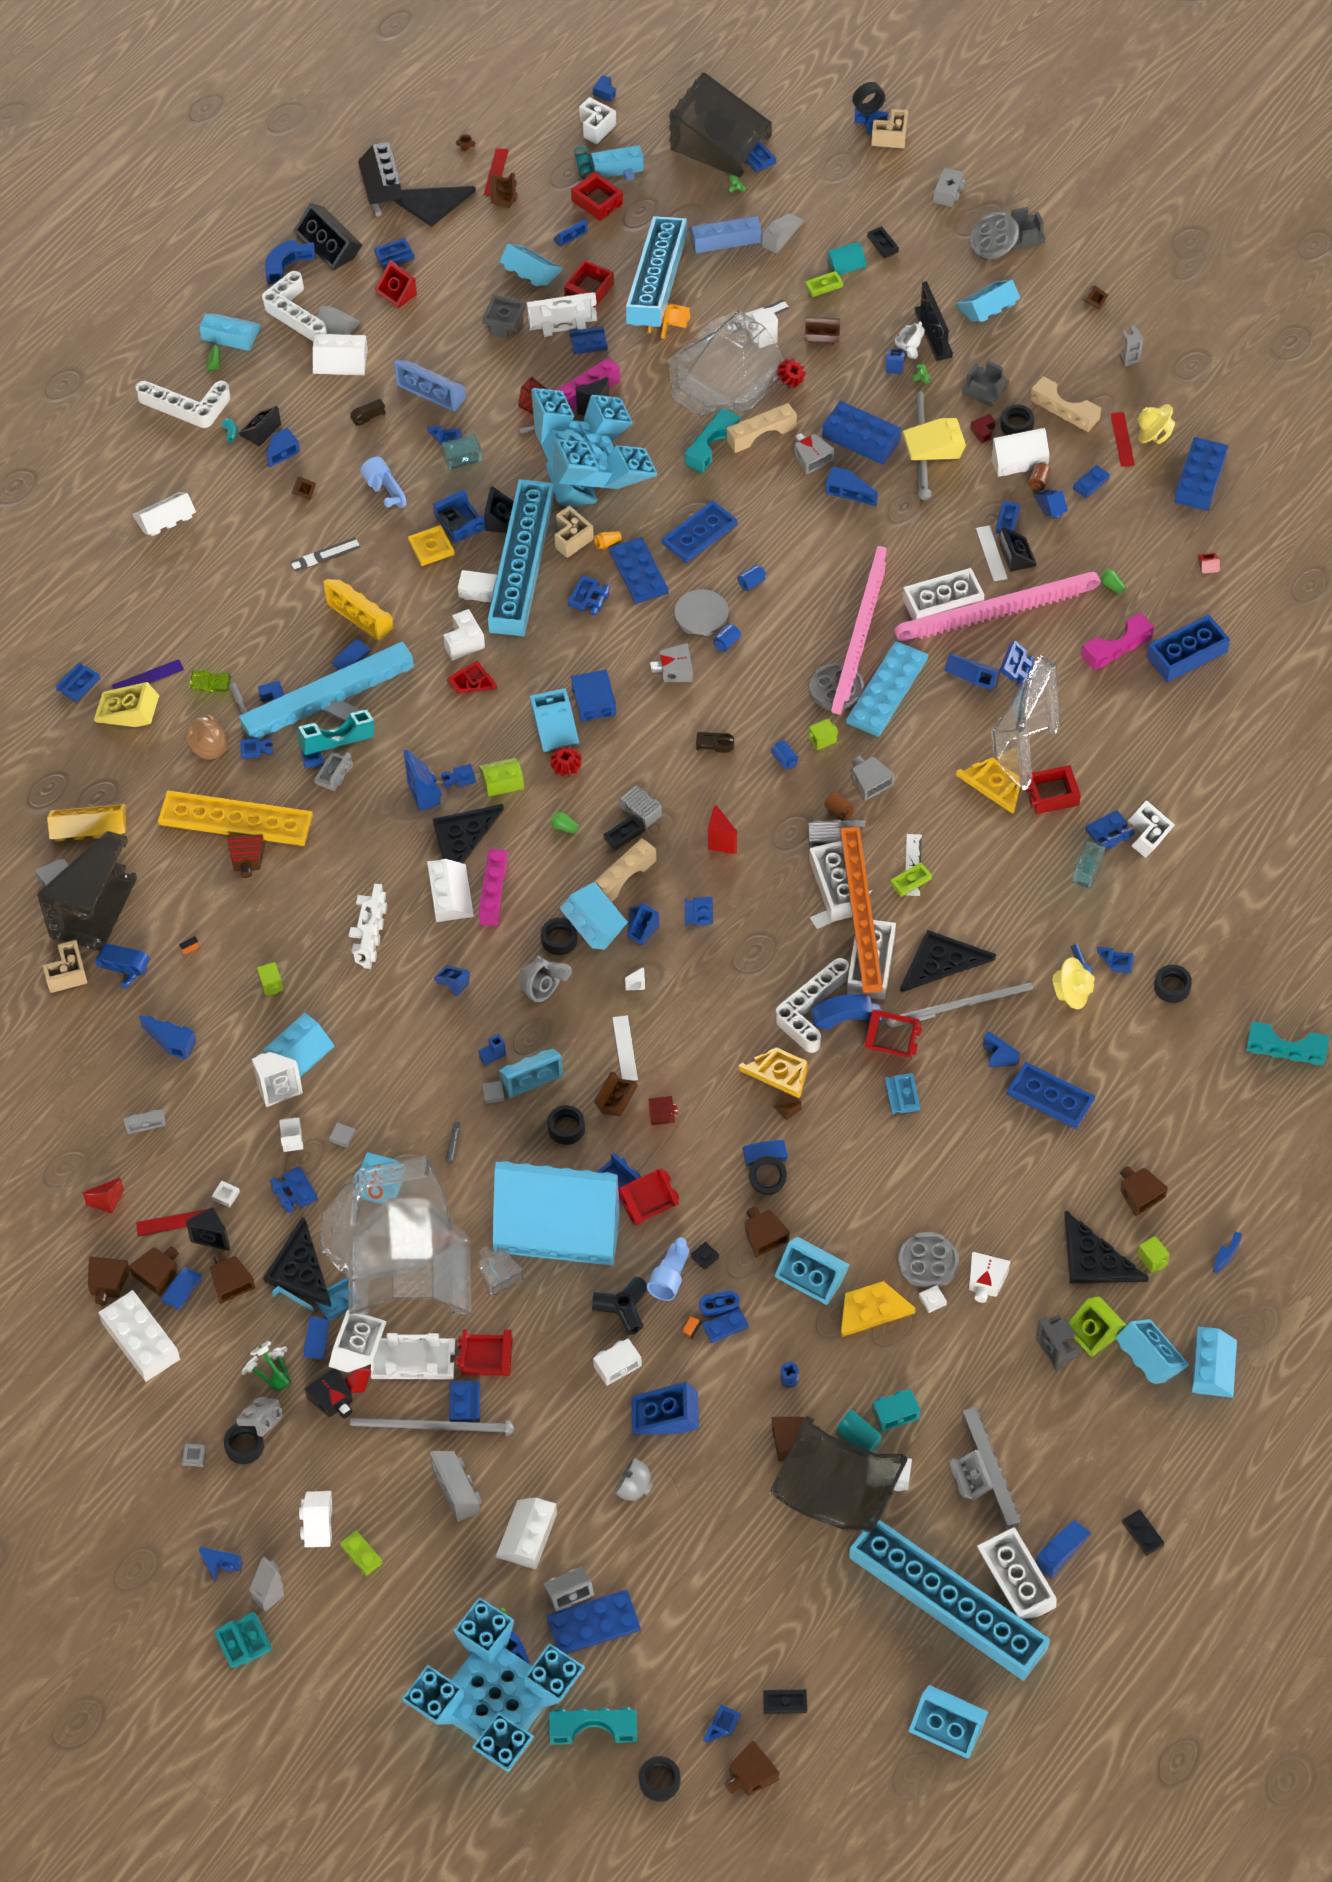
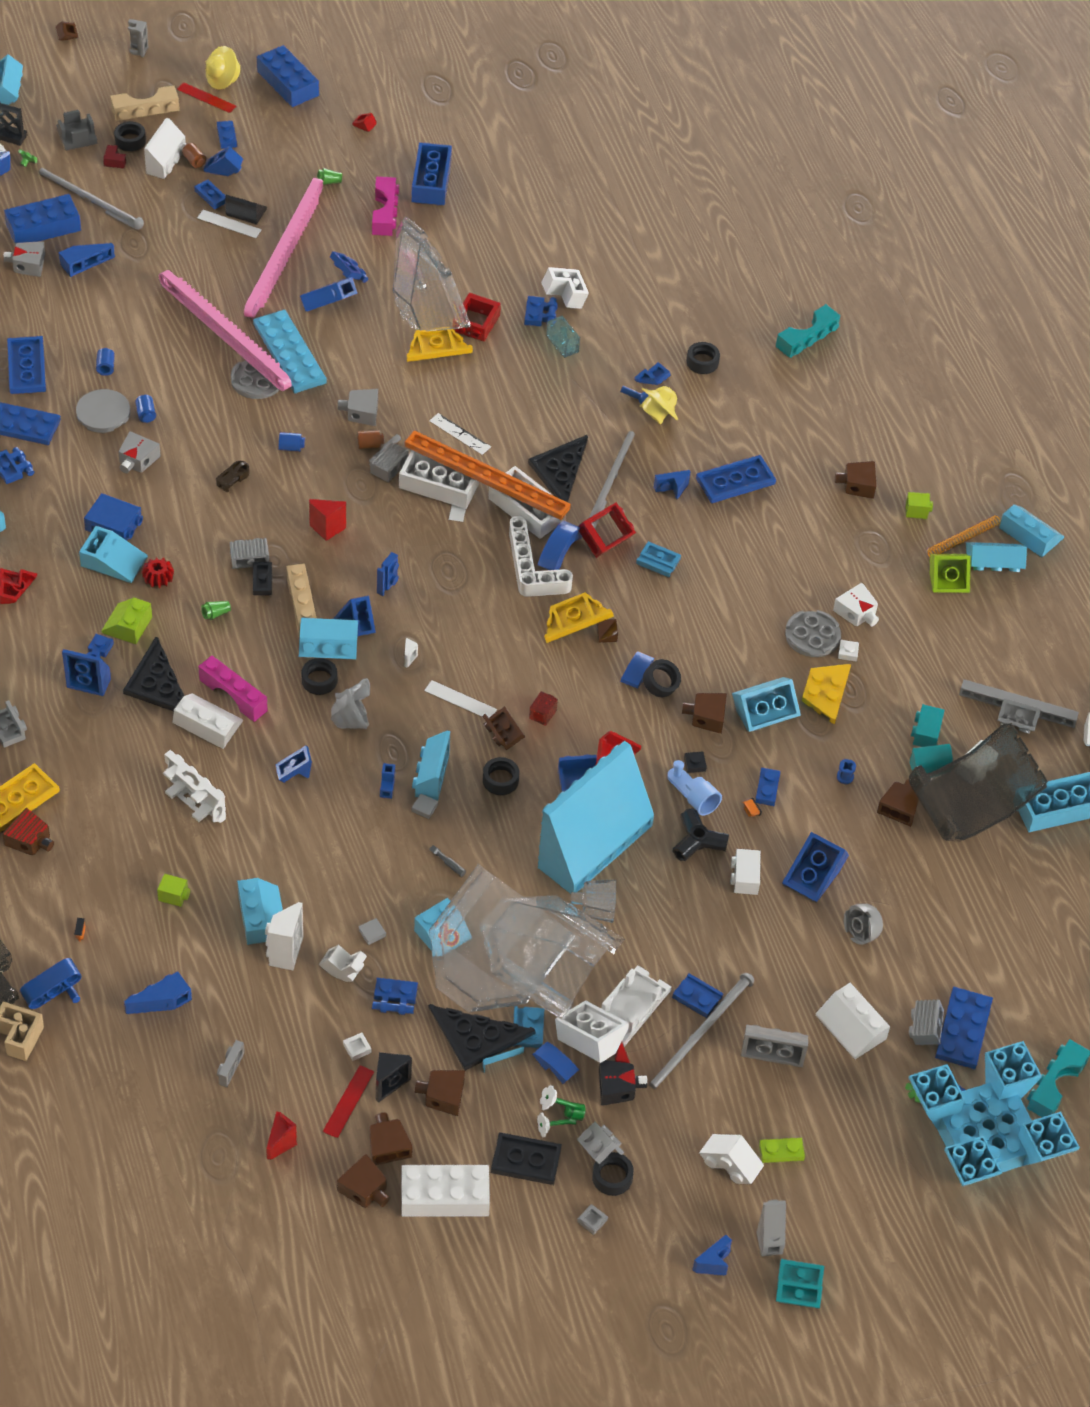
camera: 60 degrees left, 5 degrees down
(180, 1288) = (422, 1133): blue slope -> none
(215, 1374) = (526, 1158): none -> black tile
(485, 1354) = (667, 952): red panel -> none
(718, 1302) = (747, 779): blue plate -> none
(823, 734) = (295, 409): lime brick -> none
(911, 879) = (475, 440): lime plate -> none
(935, 440) = (99, 184): light yellow slope -> none
(942, 594) = (245, 267): white brick -> none
(1053, 1338) = (950, 598): dark grey panel -> none
(1094, 1259) = (889, 541): black tile -> none
(1130, 1307) = (963, 533): none -> light orange piece
(1226, 1254) = (950, 465): blue slope -> none

